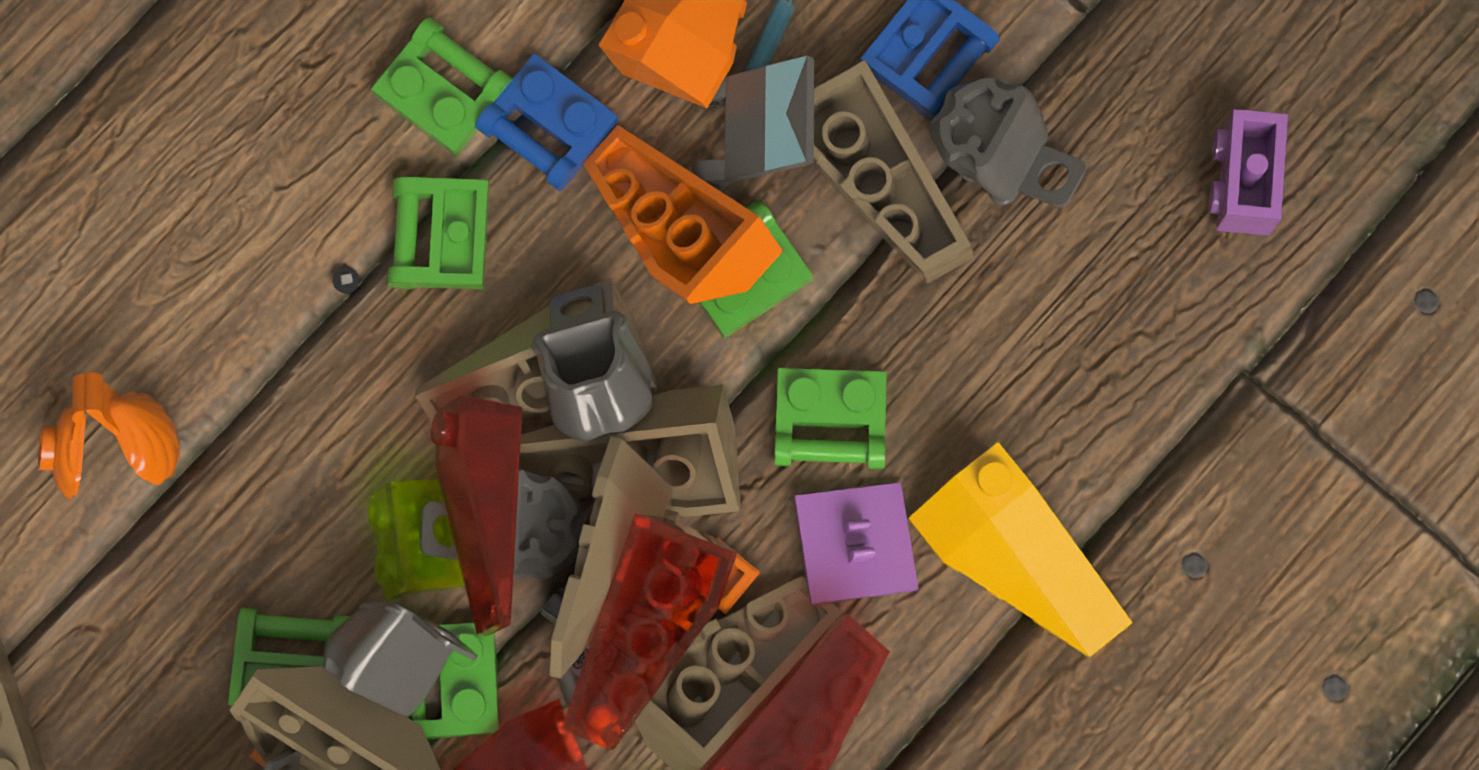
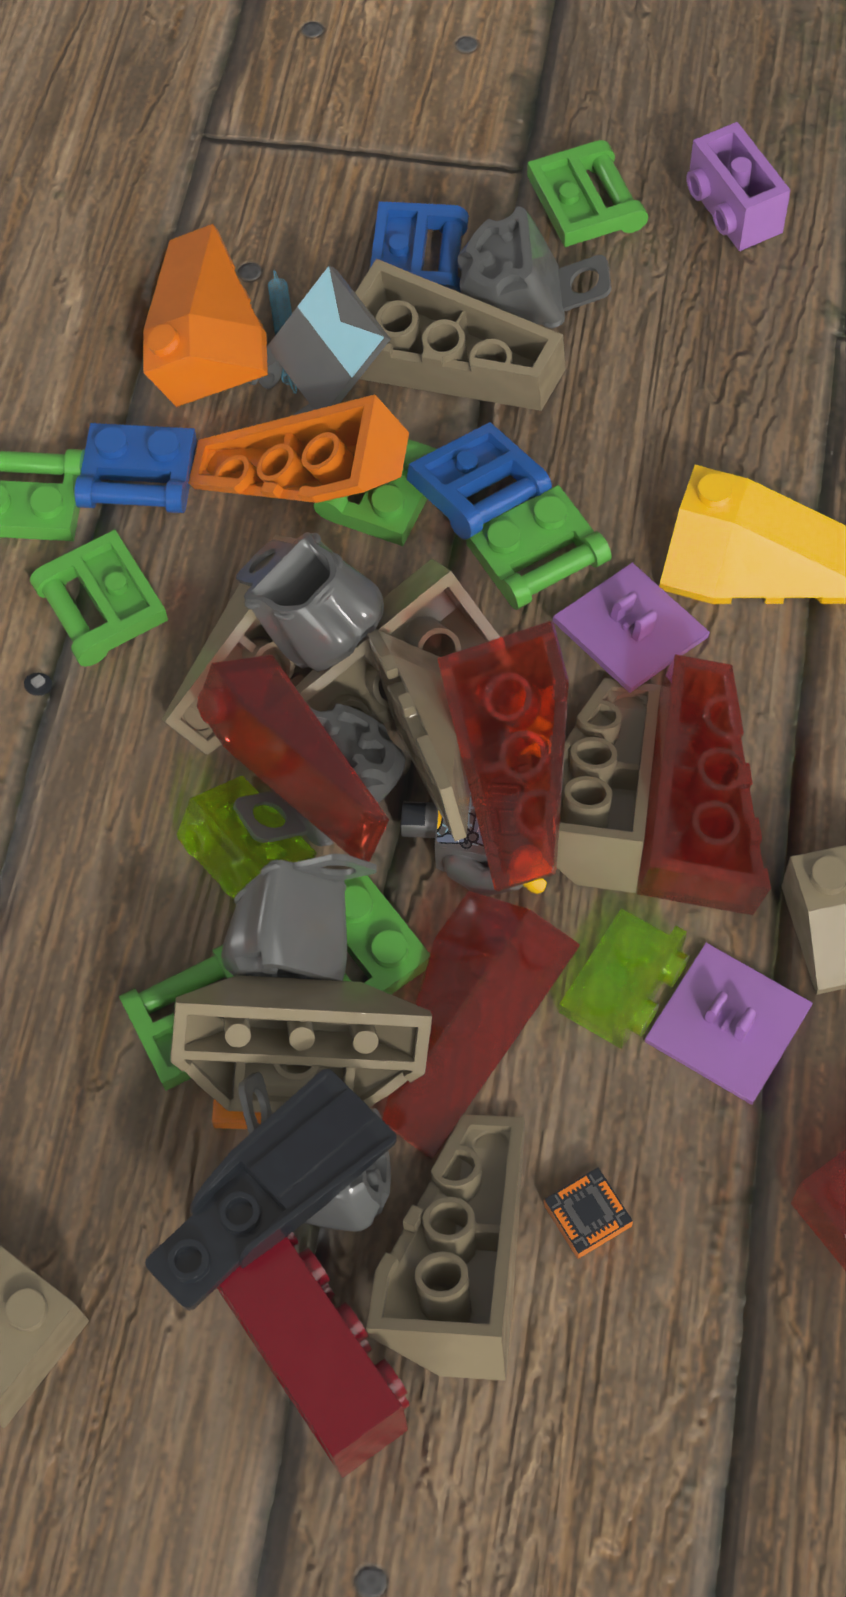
camera: 30 degrees left, 15 degrees down
(819, 308) = (470, 466): none -> blue plate
(1103, 80) = (573, 199): none -> bright green plate

